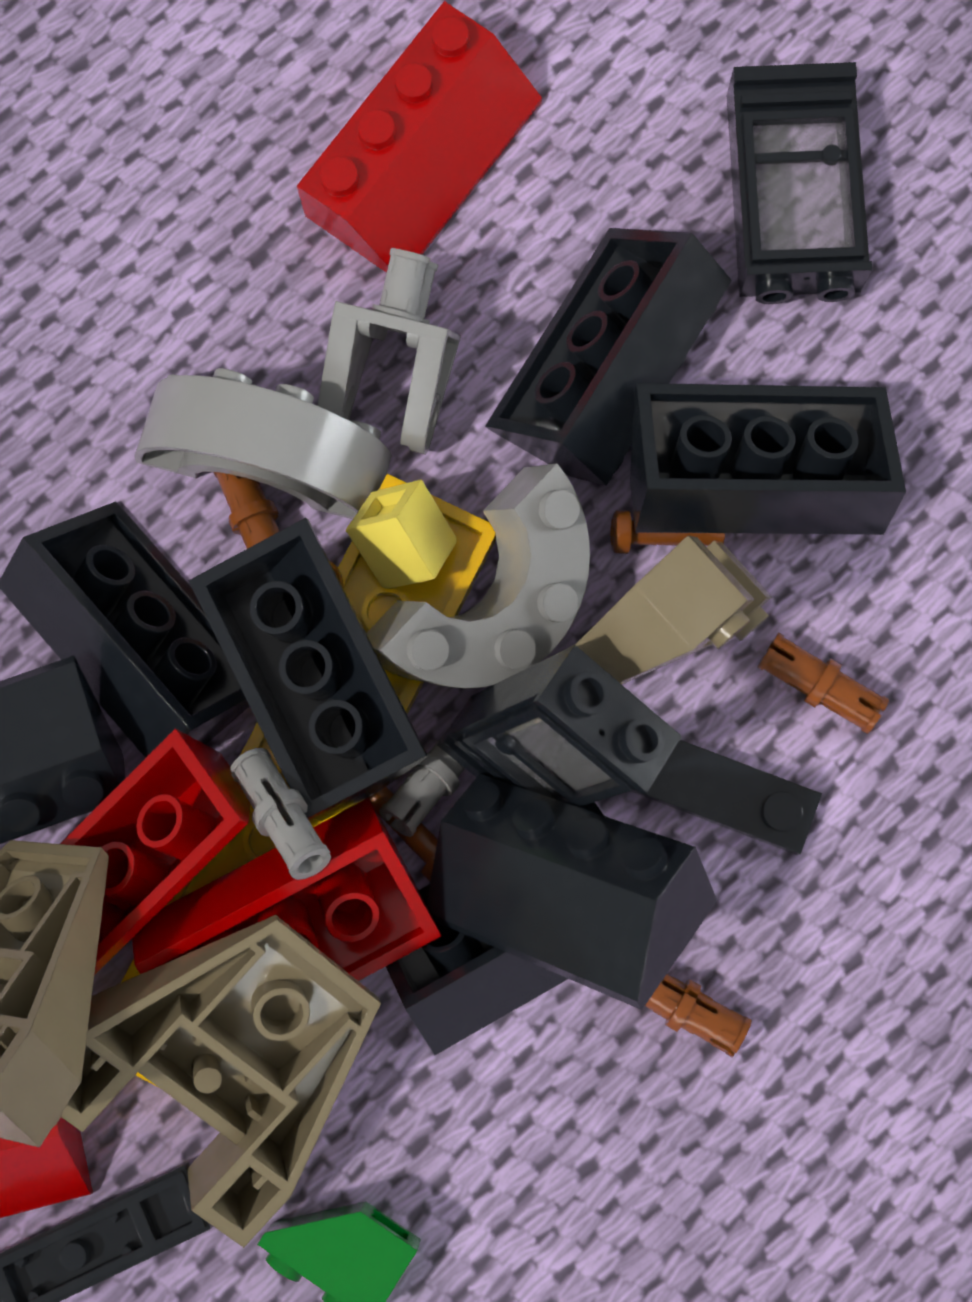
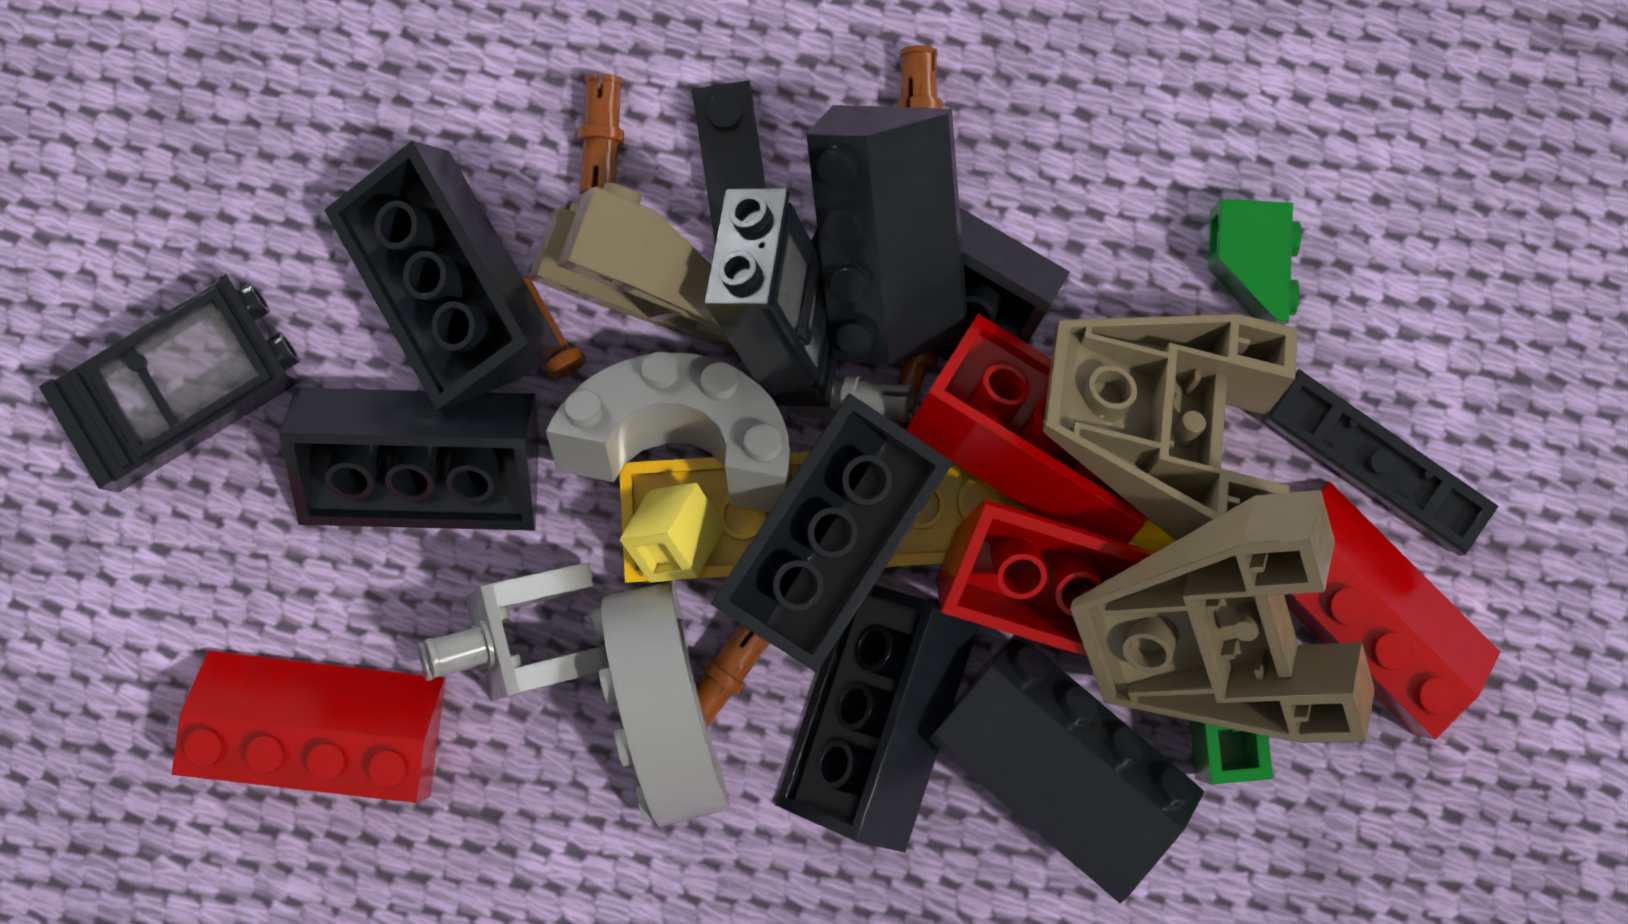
camera: 120 degrees left, 5 degrees up
(280, 813) = (960, 482): light grey pin -> none

